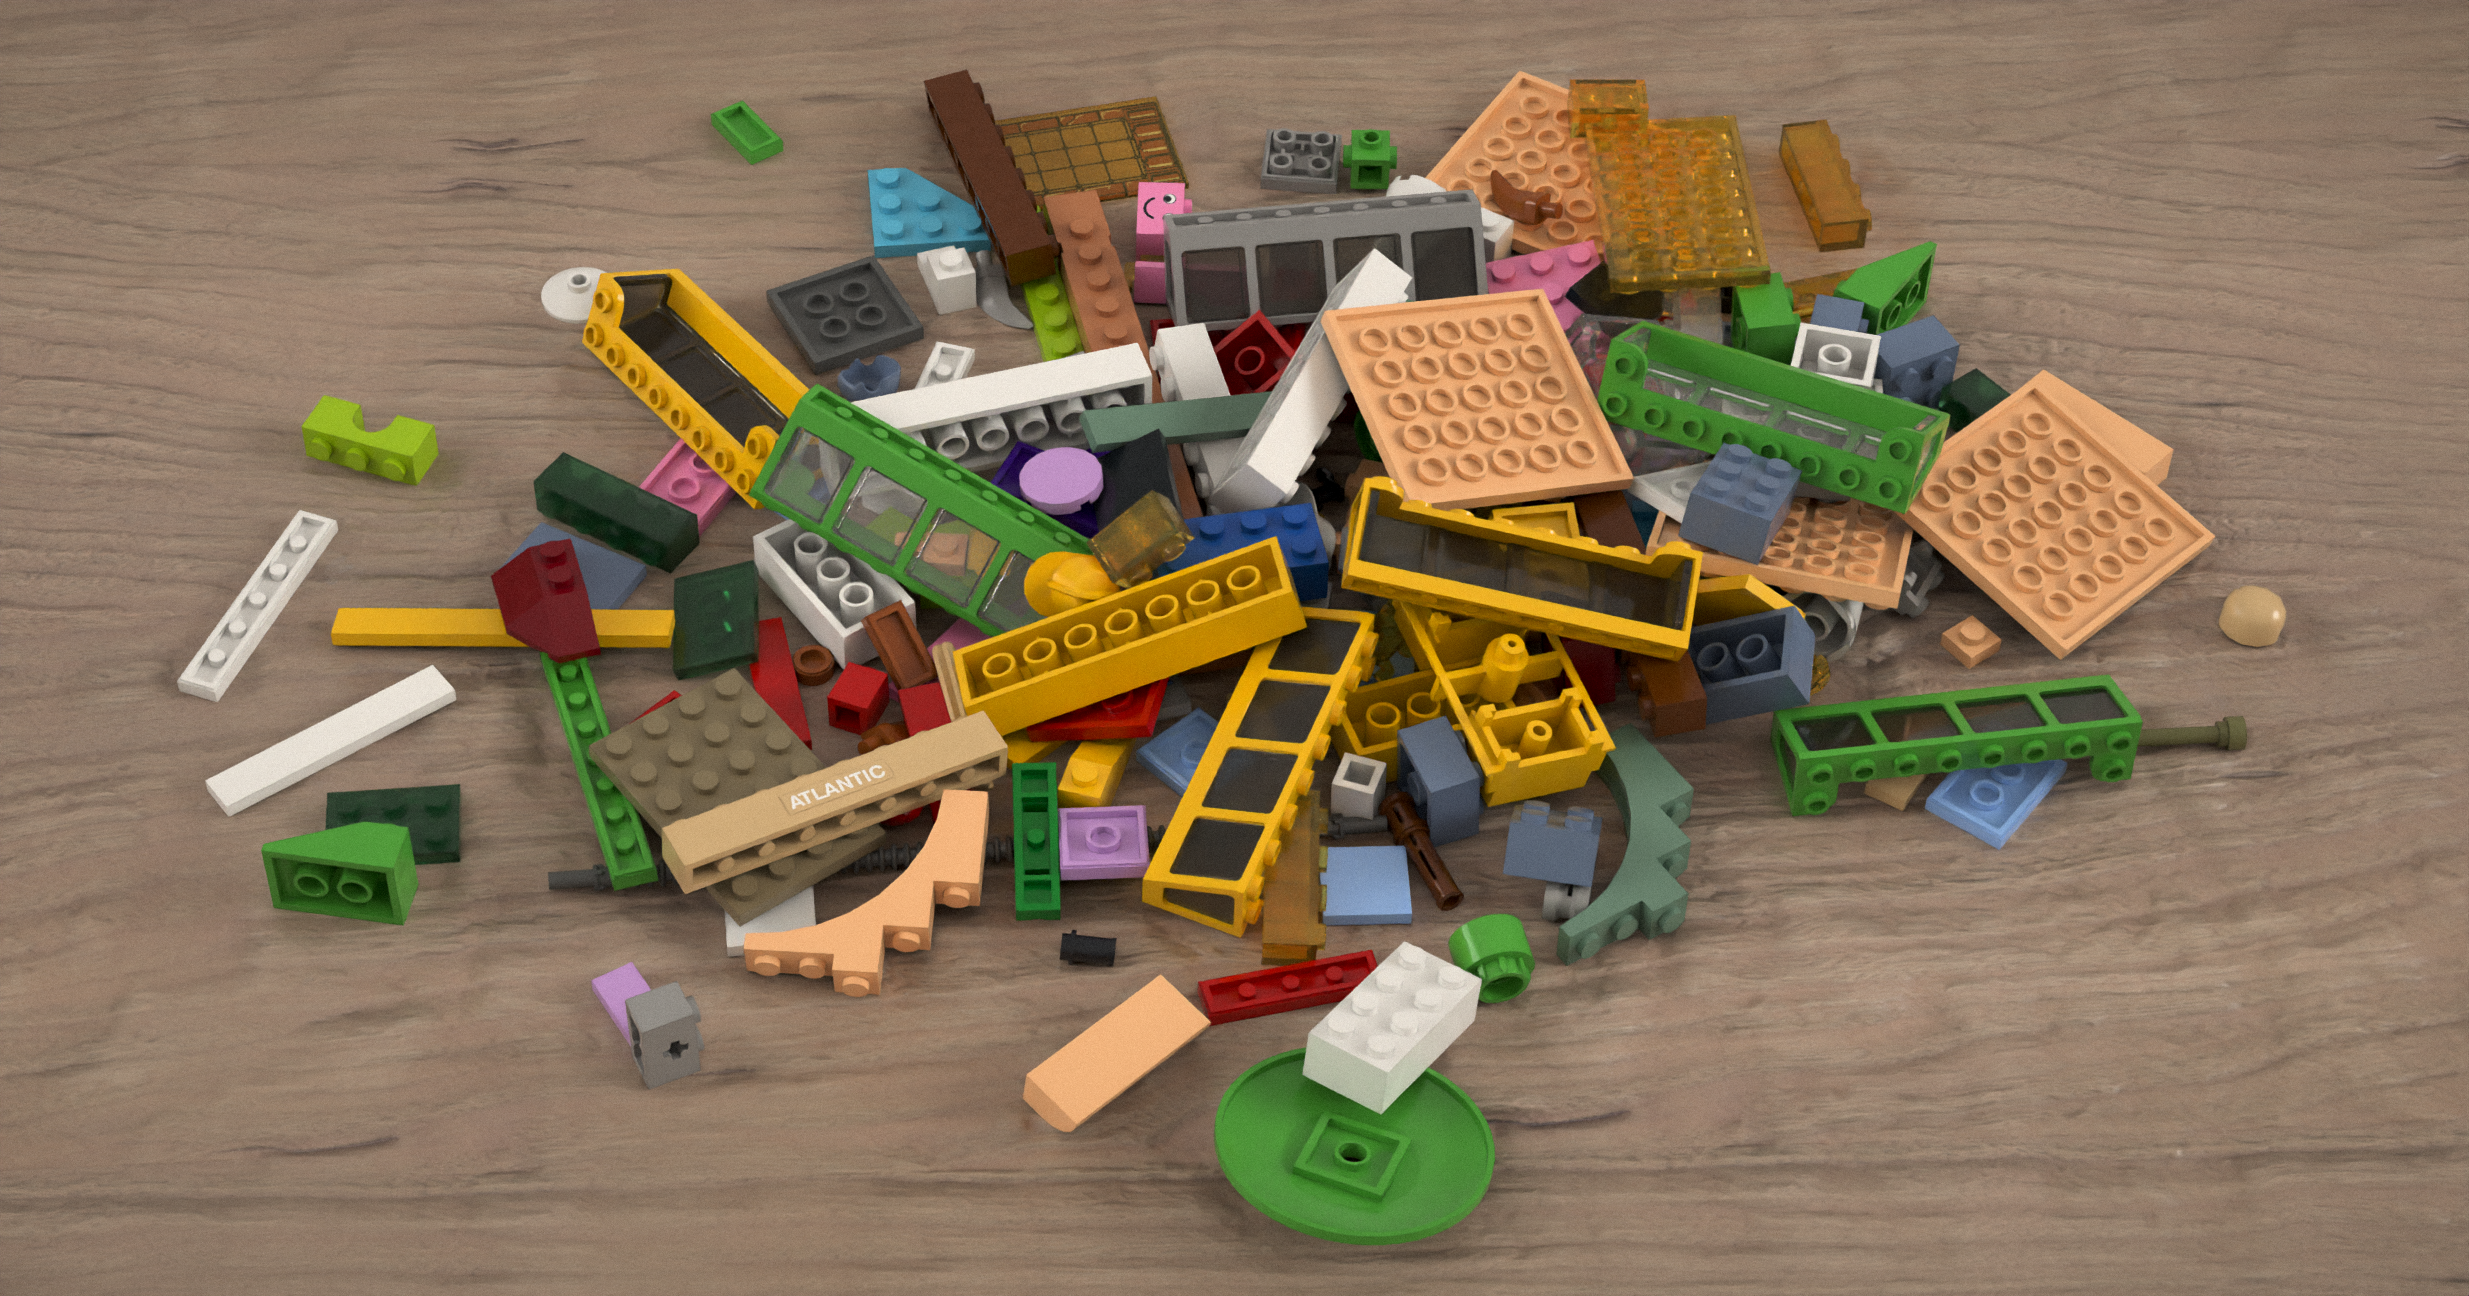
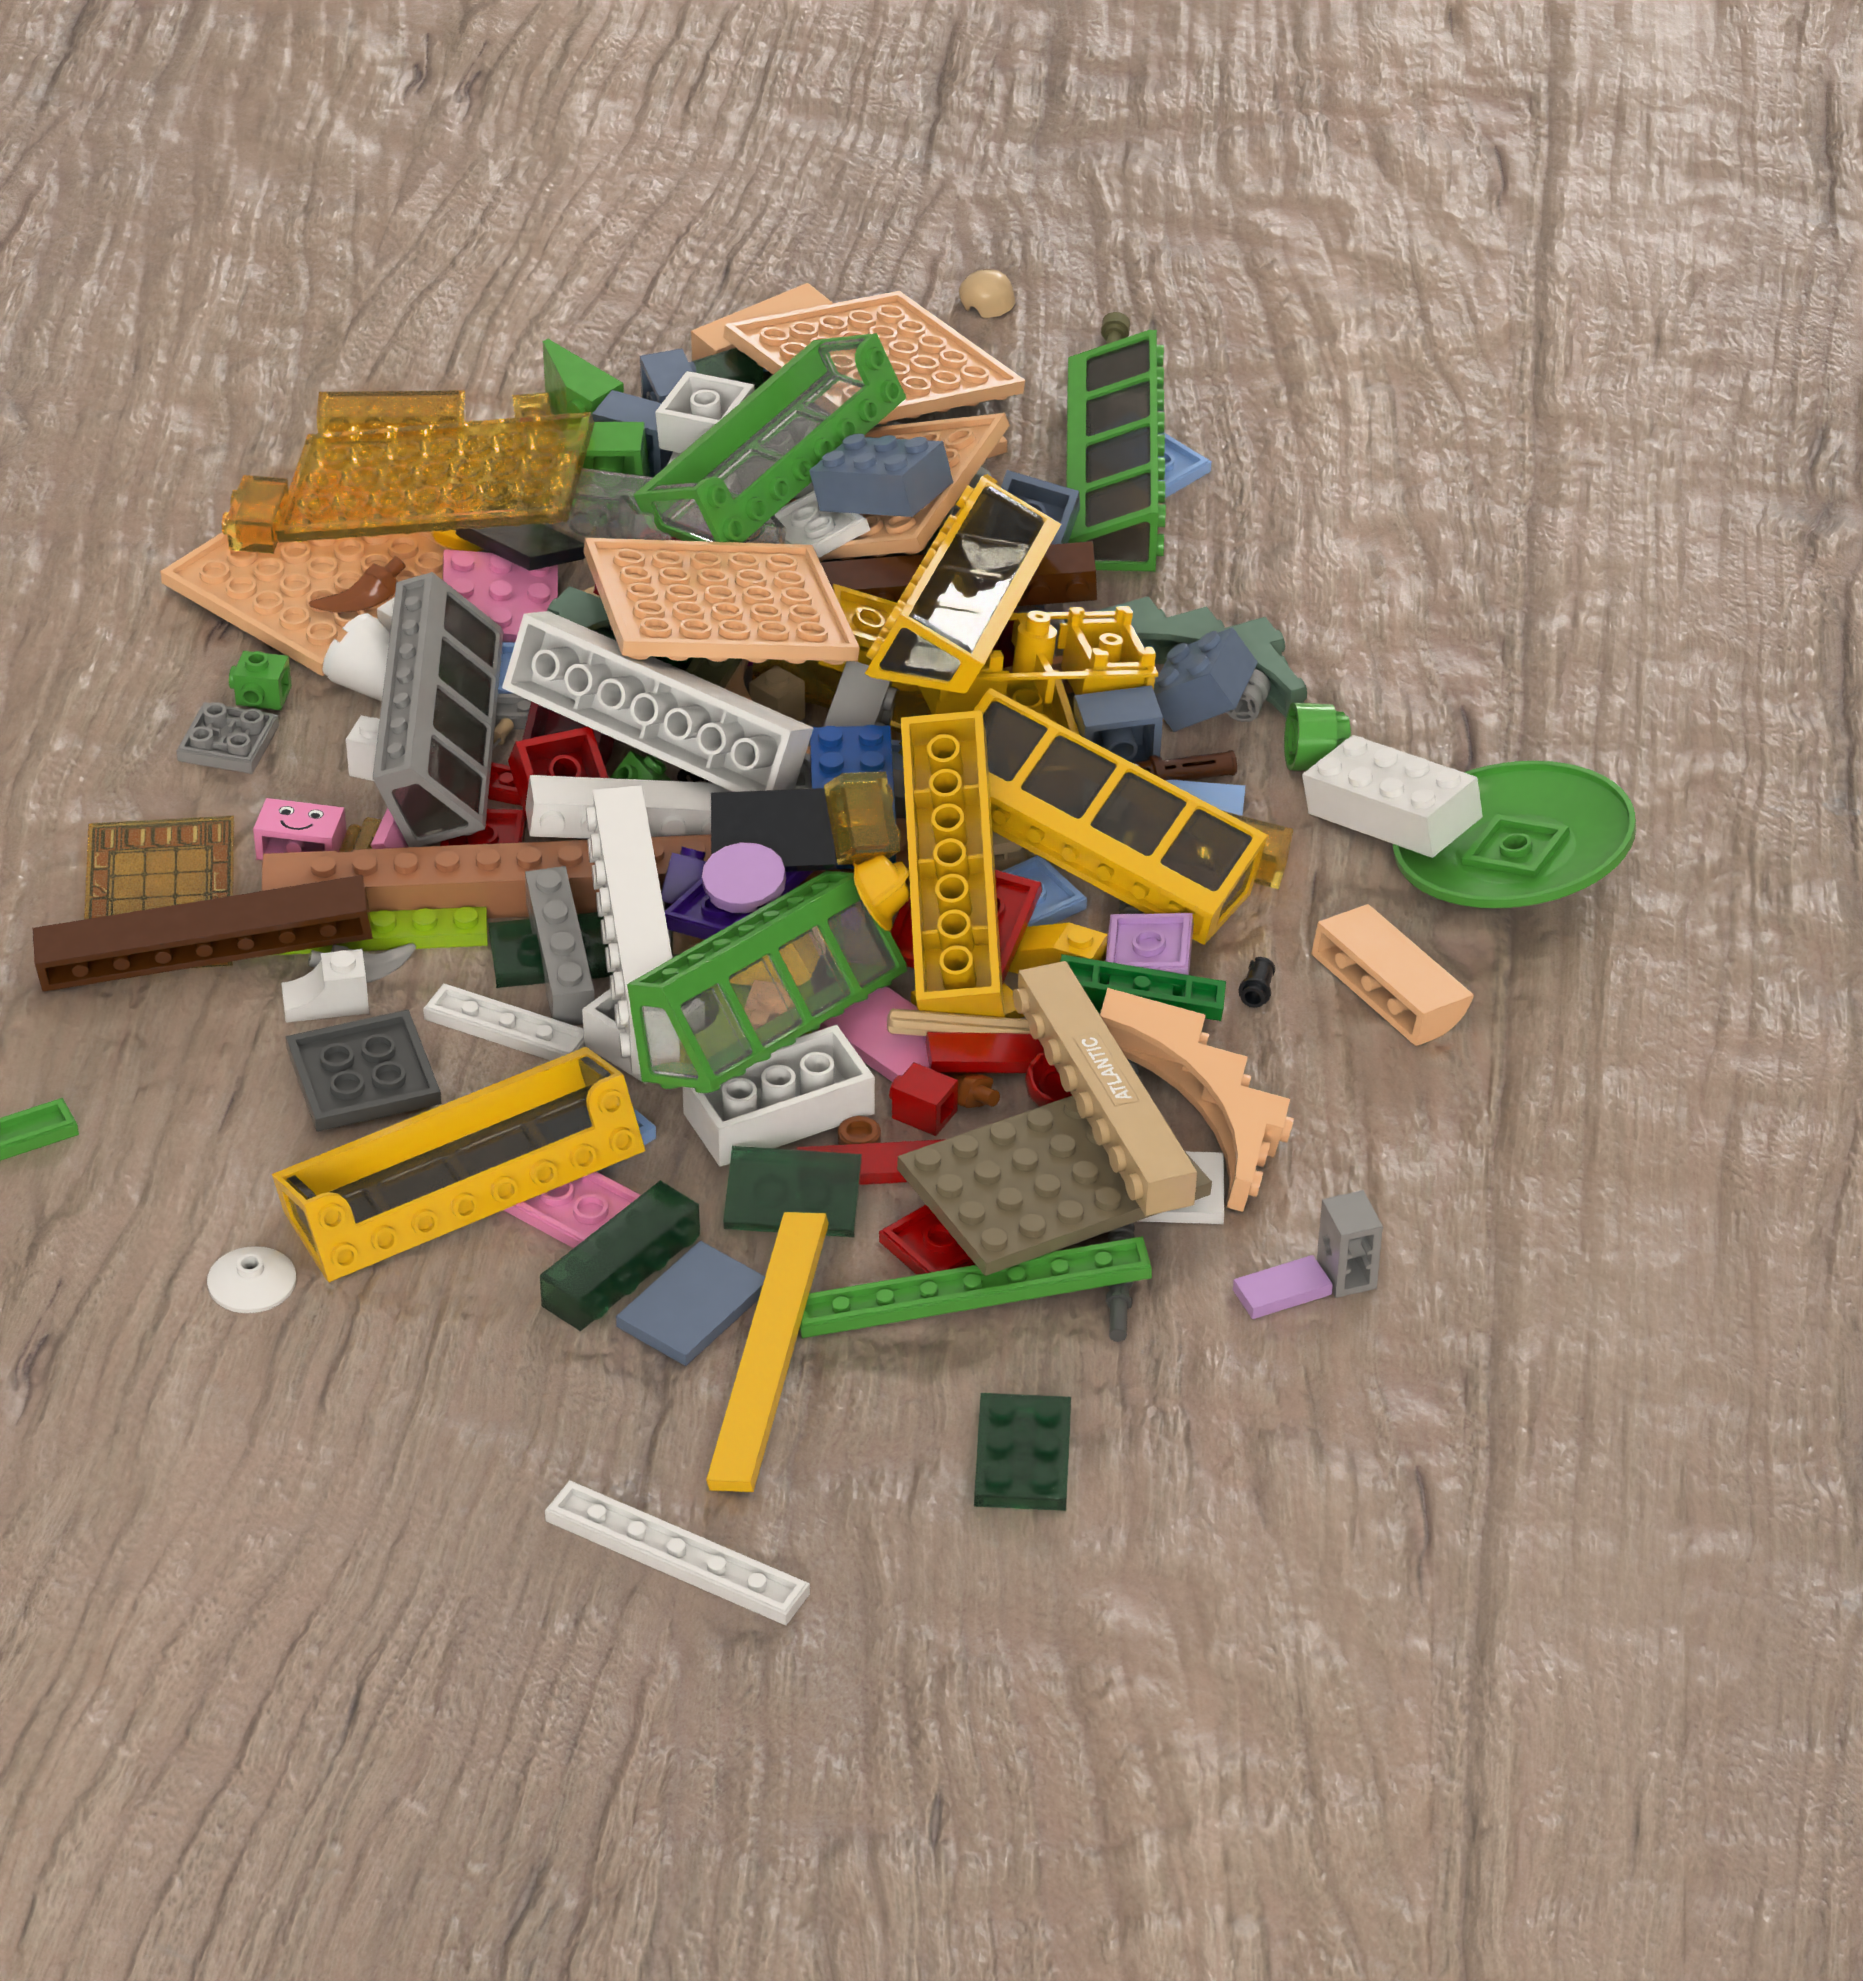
camera: 80 degrees left, 5 degrees down
(330, 740) = (894, 1496): white tile -> none
(345, 872) = (1113, 1451): bright green slope -> none
(398, 452) = (441, 1471): lime arch -> none
(547, 602) = (756, 1288): dark red wedge -> none
(870, 380) = (479, 1051): sand blue hair -> none
(900, 646) = (883, 1046): dark orange tile -> none
(919, 216) = (218, 1010): medium azure plate -> none
(1178, 420) = (671, 801): sand green tile -> none
(1284, 987) = (1311, 869): red tile -> none

